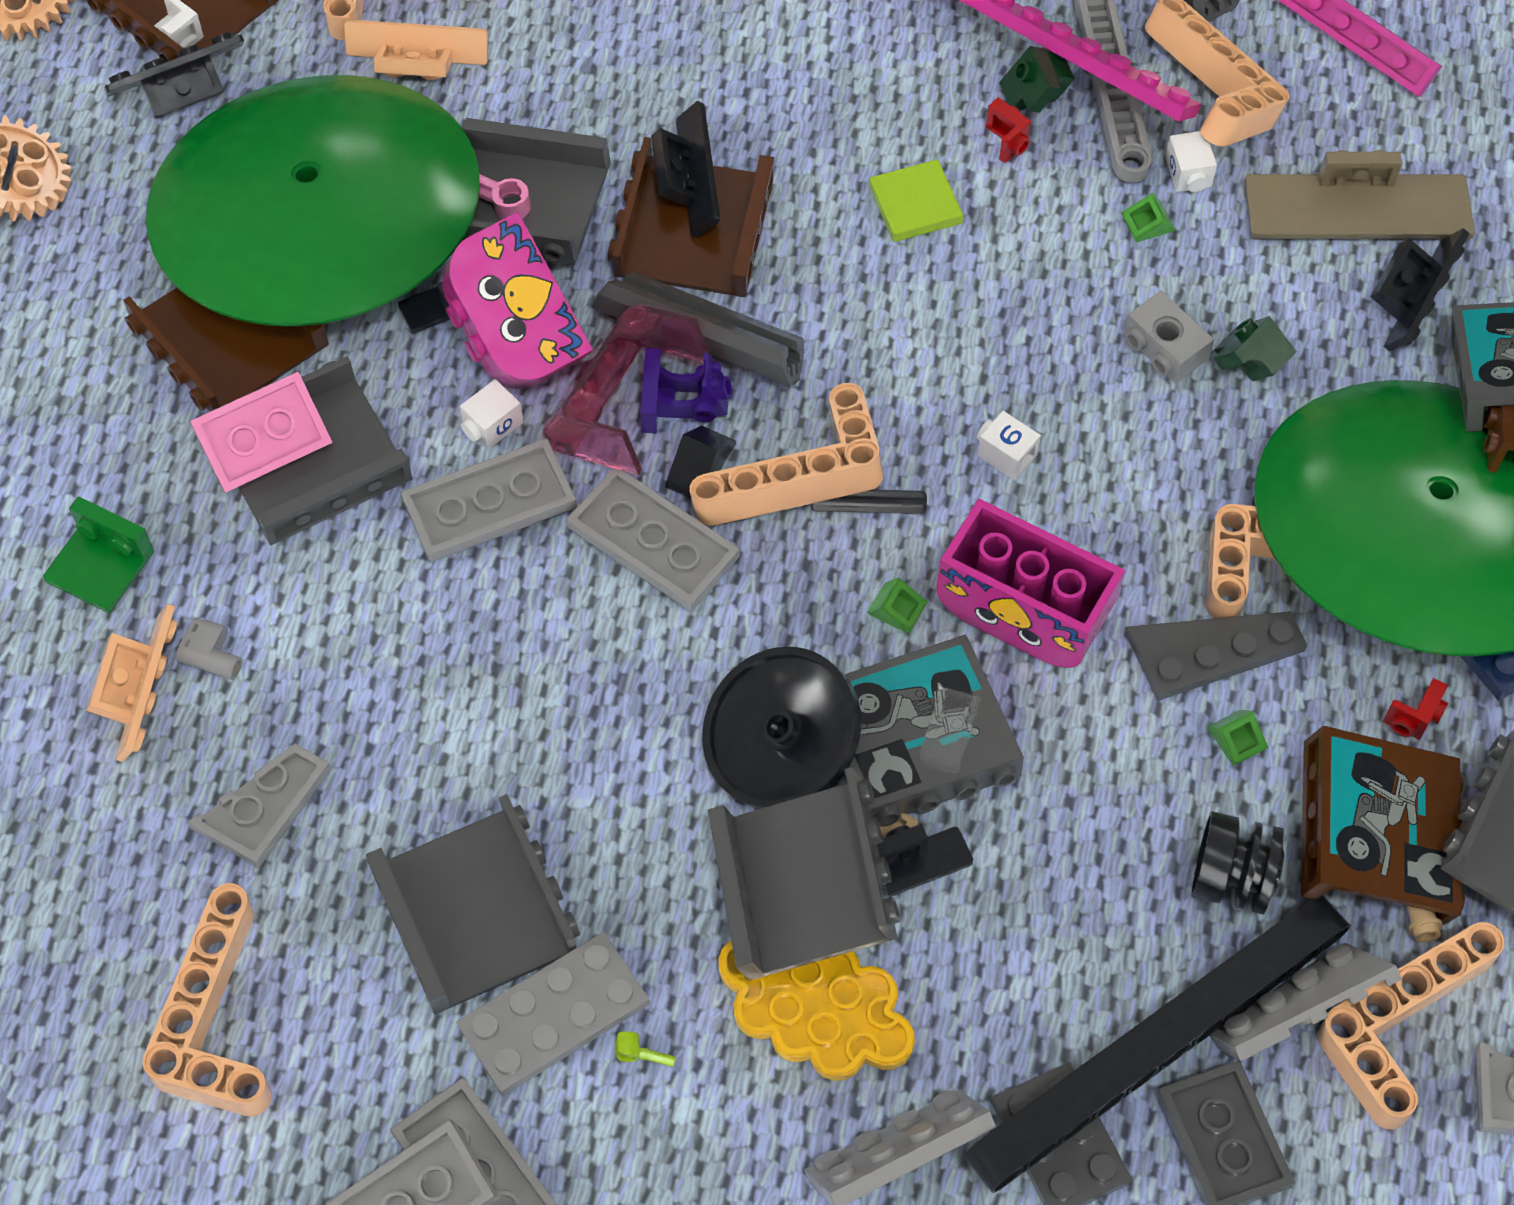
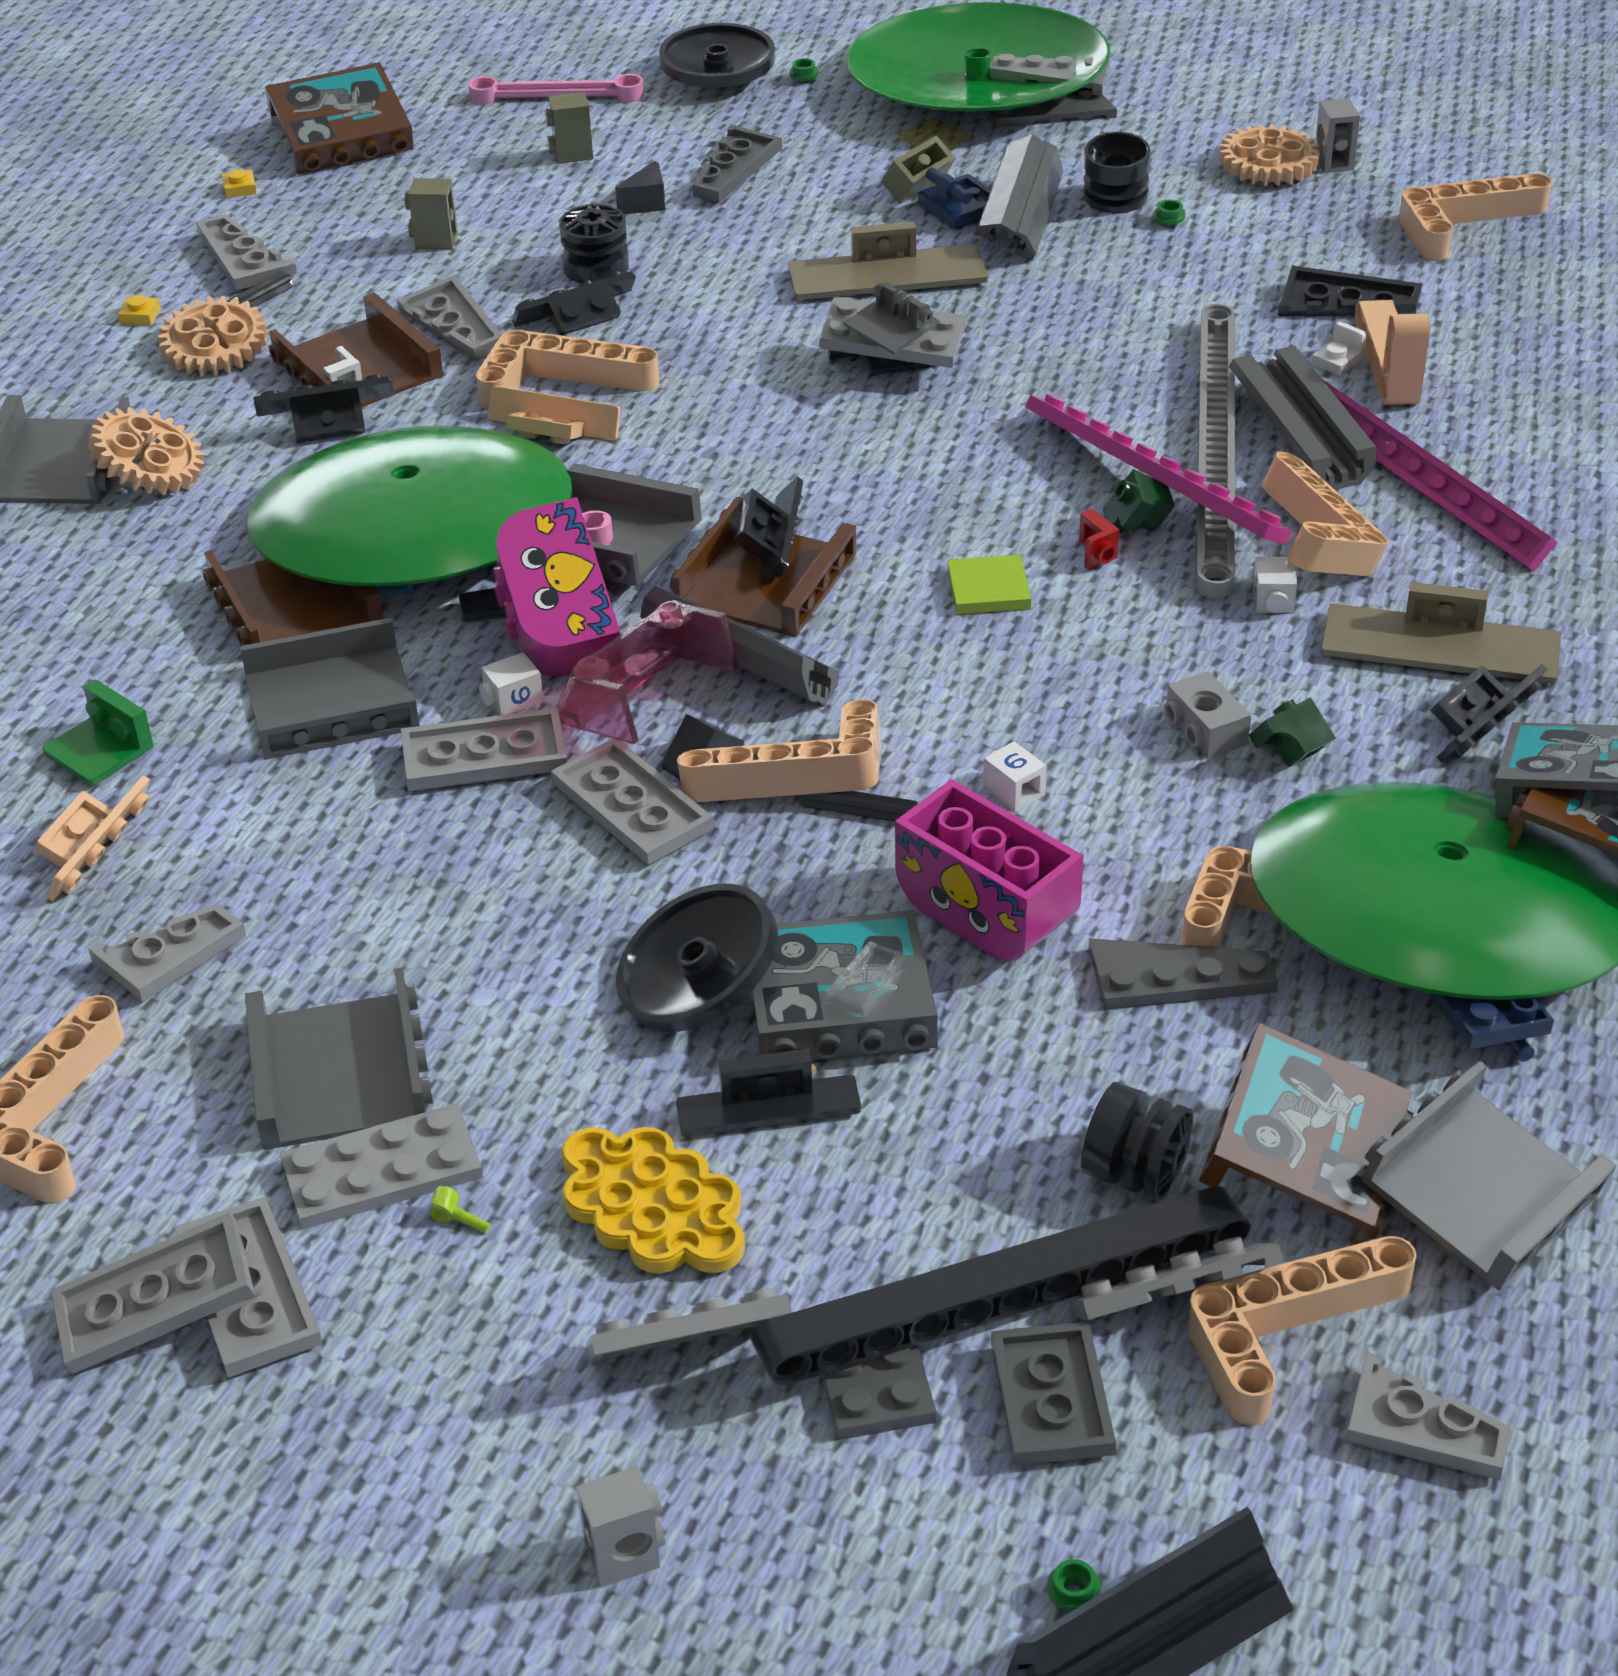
camera: 15 degrees right, 20 degrees down
(202, 649) = (168, 823): light grey piece -> none
(261, 432) = (287, 662): bright pink plate -> none
(660, 390) = (710, 699): dark purple tile -> none
(804, 879) = (667, 1077): dark grey panel -> none
(898, 605) = (859, 890): bright green slope -> none
(1148, 219) = (1219, 626): bright green slope -> none
(1239, 736) = (1181, 1049): bright green slope -> none
(1412, 722) = (1386, 1055): red bracket -> none
(1424, 924) = (1334, 1233): tan pin -> none

